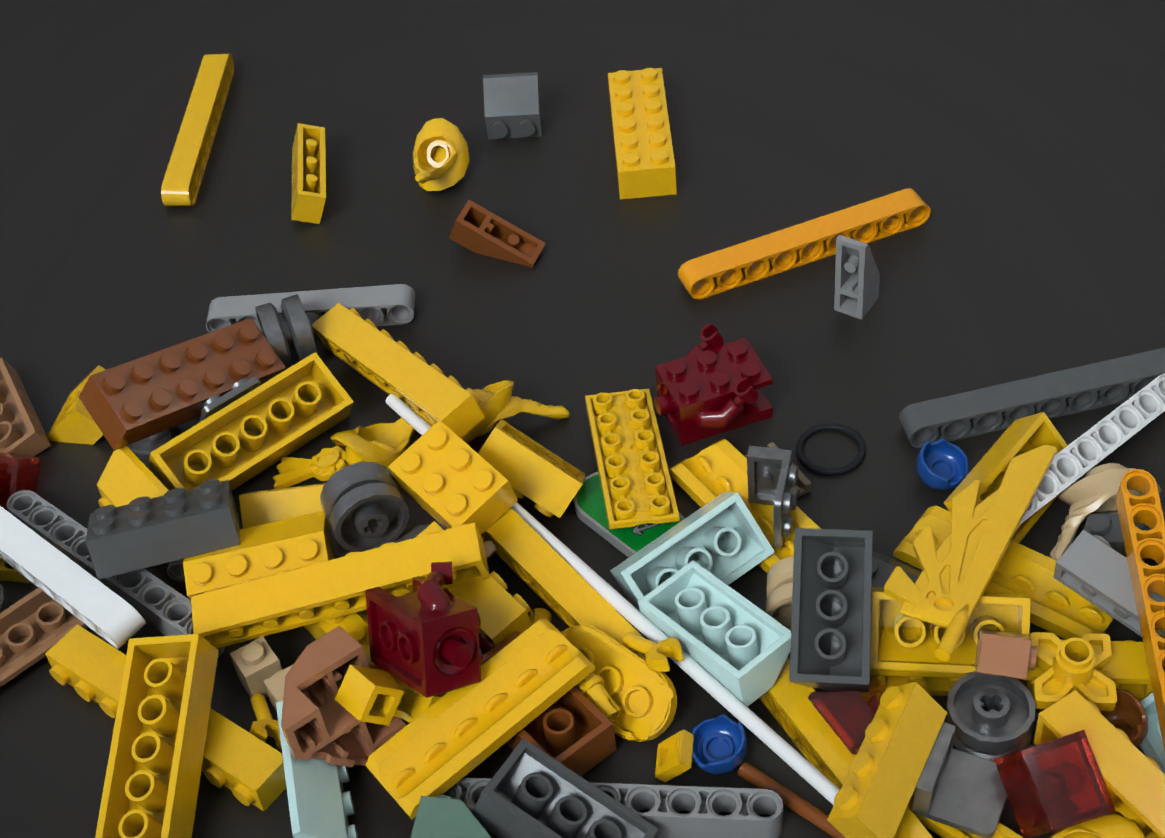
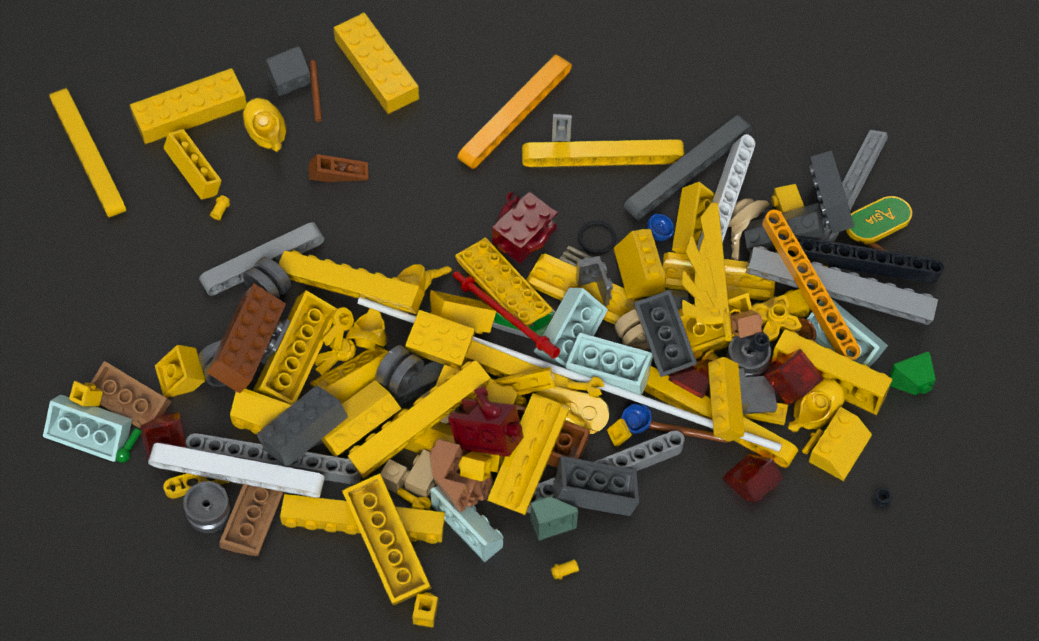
camera: 35 degrees left, 15 degrees up
(308, 235) = (220, 207): none -> yellow pin
(344, 415) = (342, 321): none -> yellow piece
(359, 110) = (188, 105): none -> yellow brick
(538, 145) = (315, 91): none -> dark orange bar
(562, 604) = (530, 381): none -> yellow plate
(619, 551) = (542, 343): none -> red bar
(875, 497) = (640, 265): none -> yellow slope
(910, 335) = (602, 153): none -> yellow beam
(1020, 689) = (762, 338): none -> black plate

